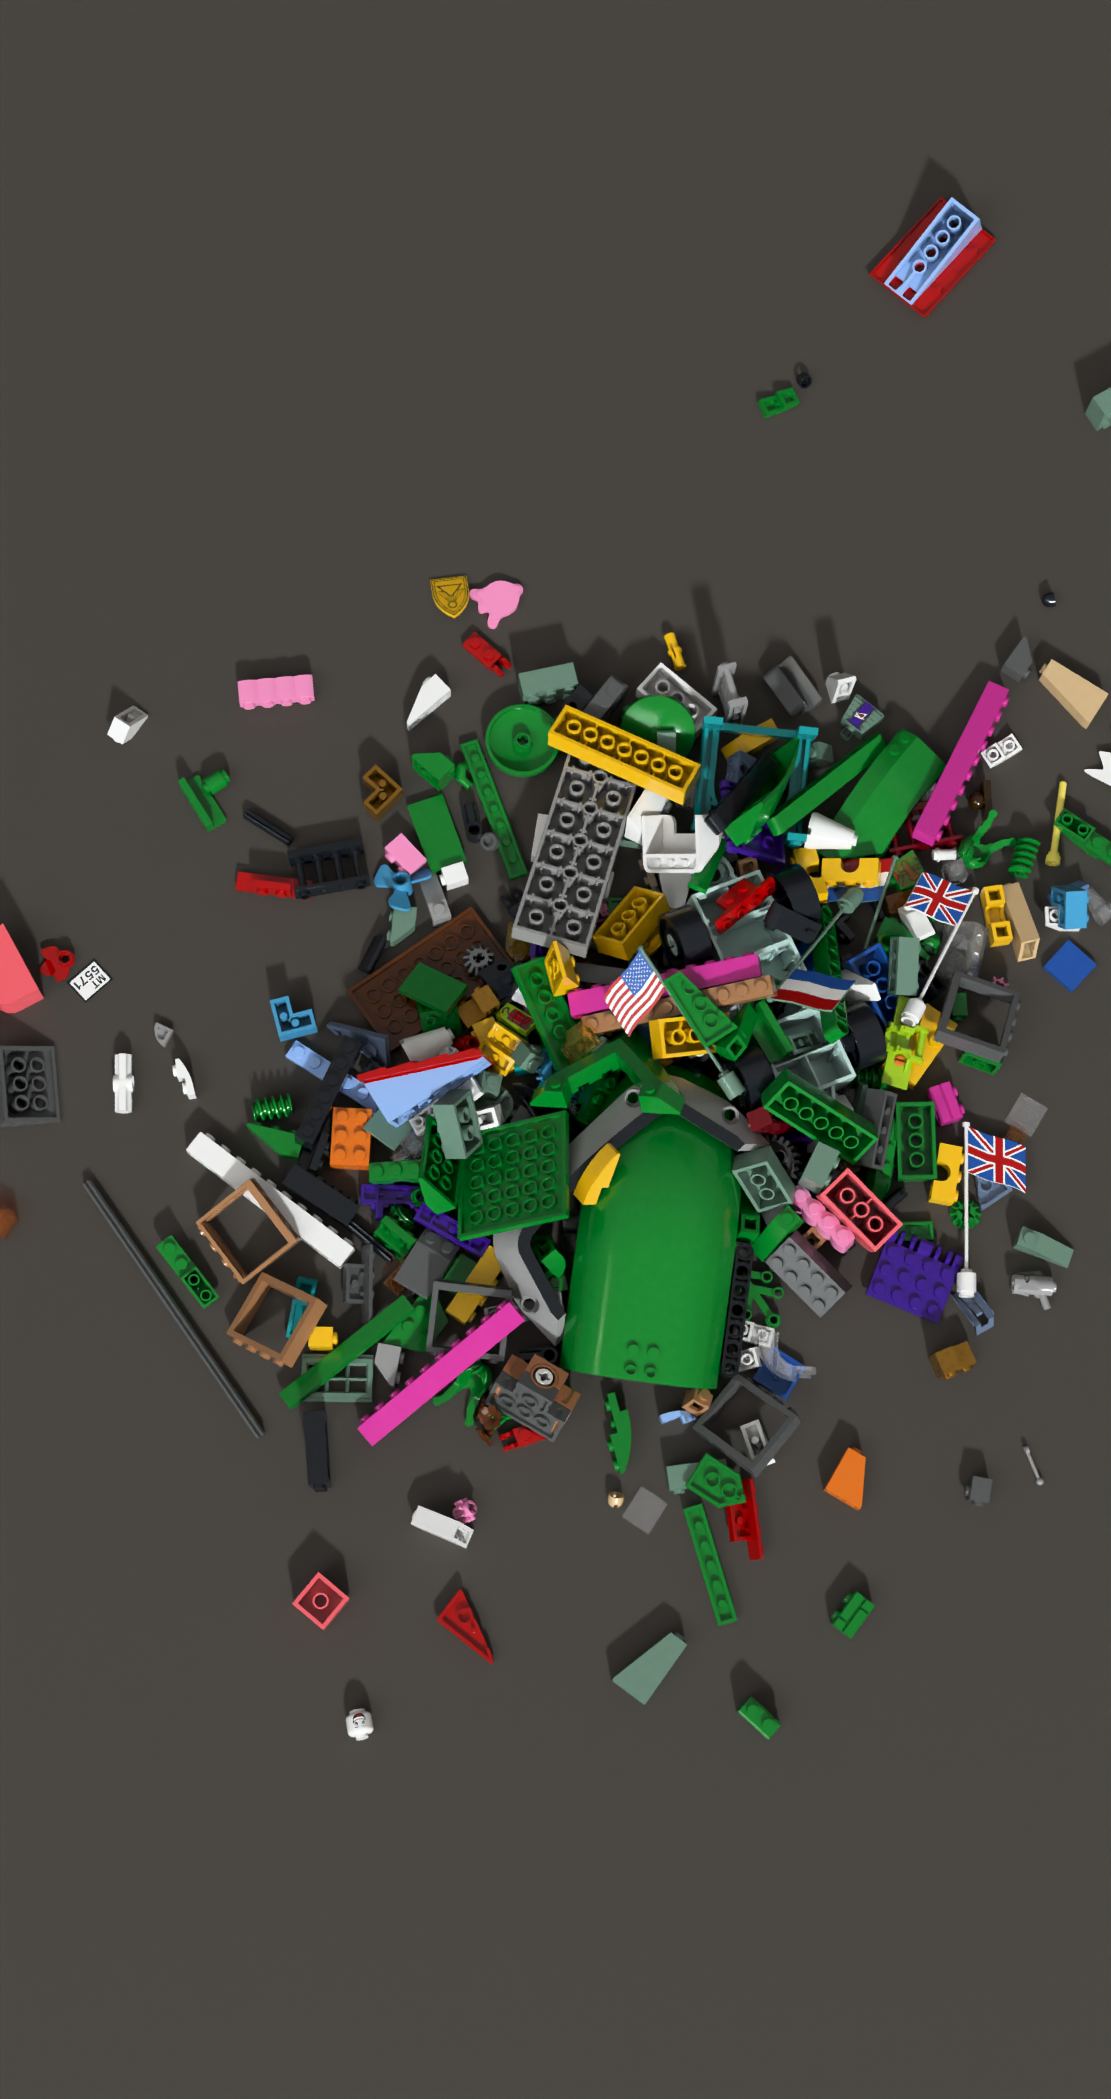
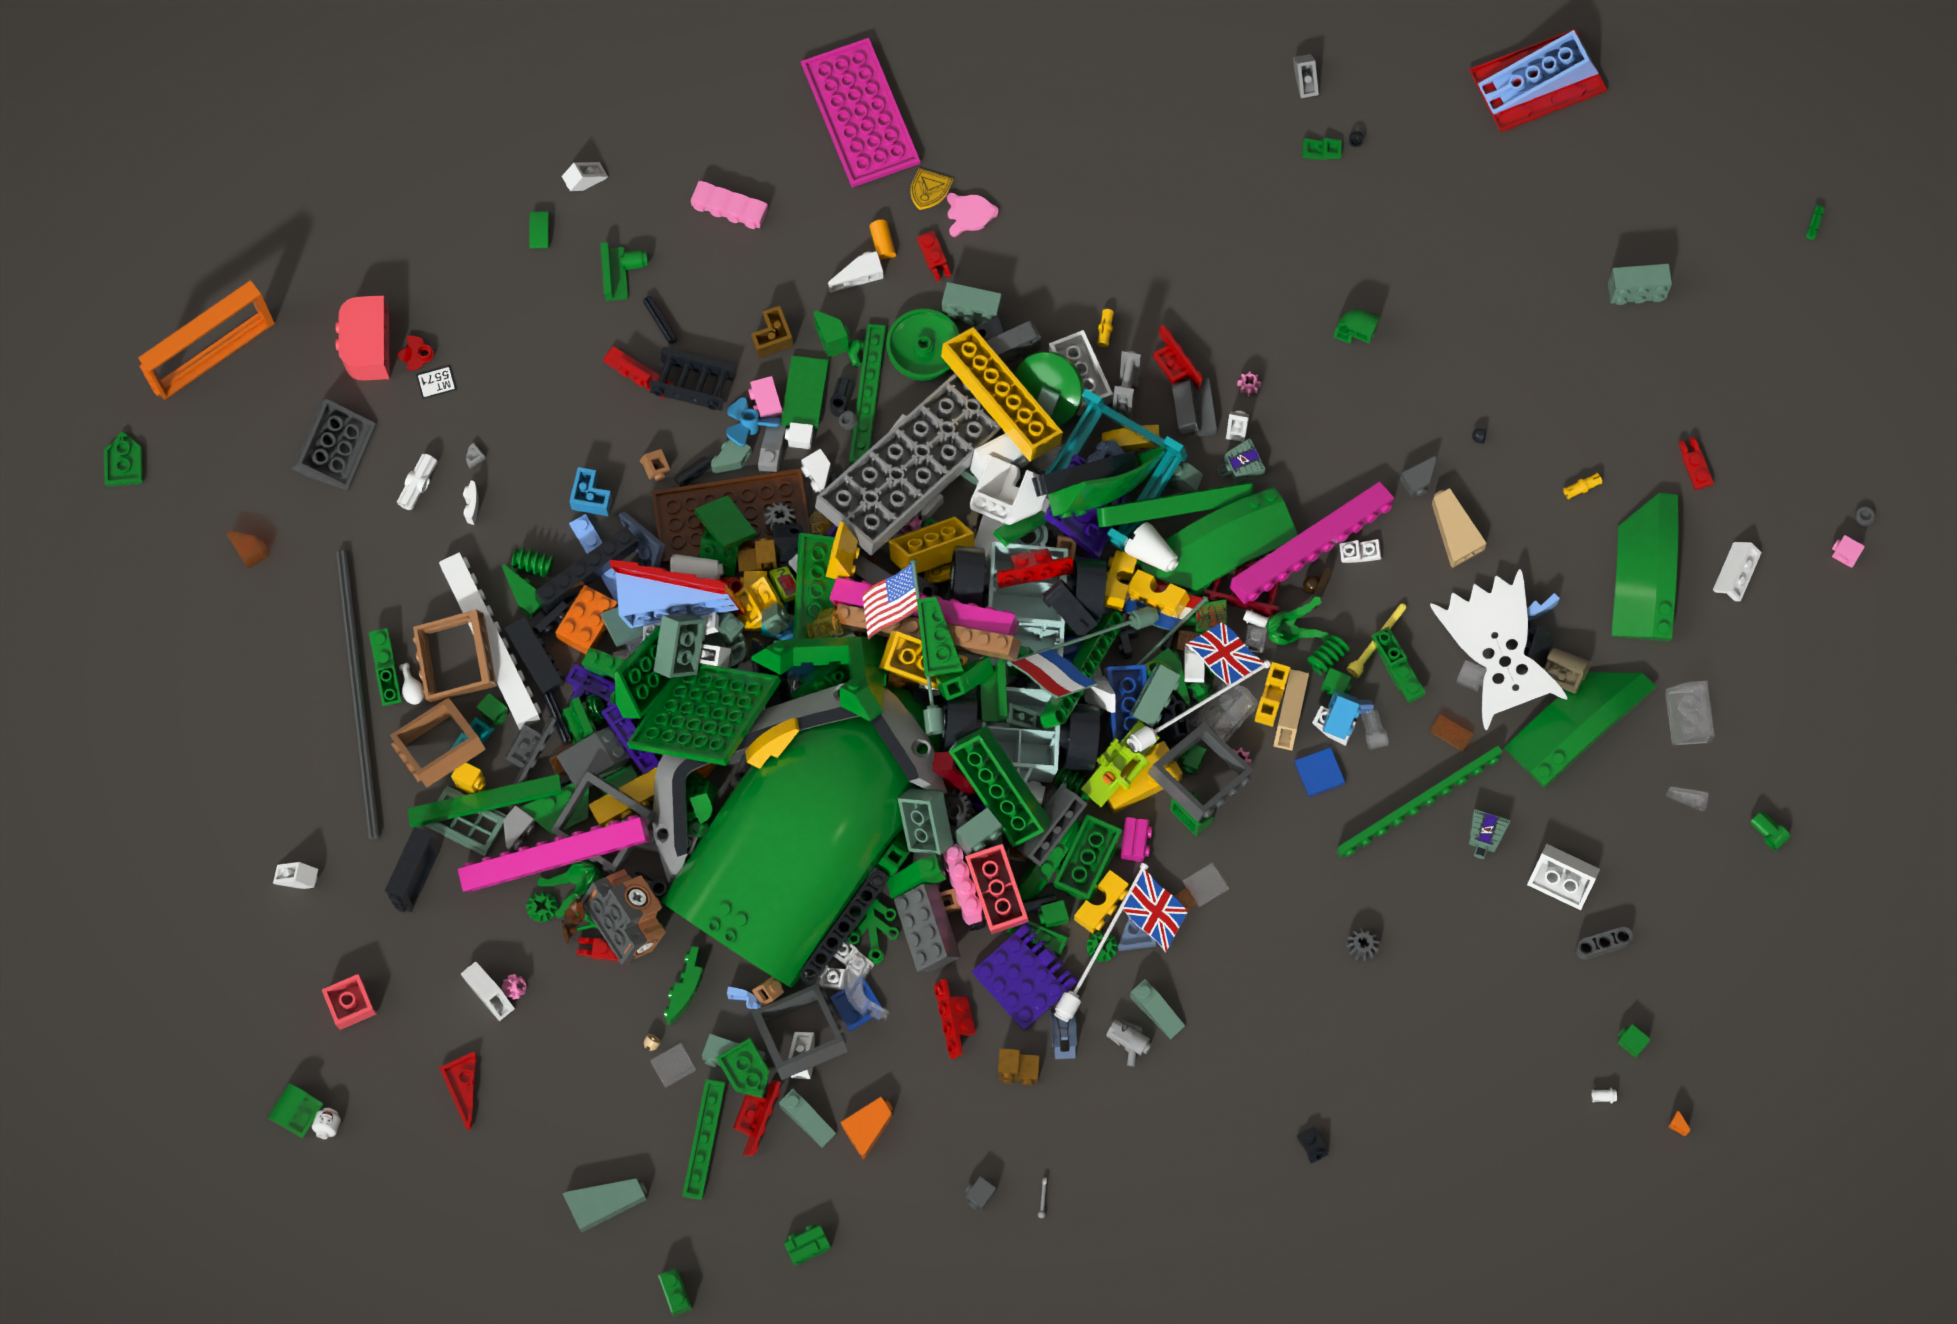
camera: 35 degrees right, 5 degrees down
(111, 794) = (539, 230): none -> green slope
(207, 1507) = (295, 875): none -> white slope
(221, 1278) = (411, 688): none -> white piece
(308, 1263) = (493, 710): none -> green brick
(324, 1727) = (295, 1110): none -> green brick
(337, 964) = (657, 460): none -> medium nougat brick
(350, 551) = (860, 112): none -> dark pink plate
(432, 660) = (882, 239): none -> light orange brick
(441, 1429) = (542, 915): none -> green gear
(486, 899) = (818, 470): none -> white slope
(731, 341) = (1306, 75): none -> light grey slope
(752, 653) = (1174, 361): none -> red bracket
(791, 1499) = (806, 1118): none -> sand green slope
(829, 638) = (1249, 388): none -> bright pink gear
(872, 1342) = (955, 1017): none -> red bracket
(896, 547) = (1357, 324): none -> green brick
(910, 1206) = (1053, 914): none -> green brick
(1043, 879) = (1336, 680): none -> green brick

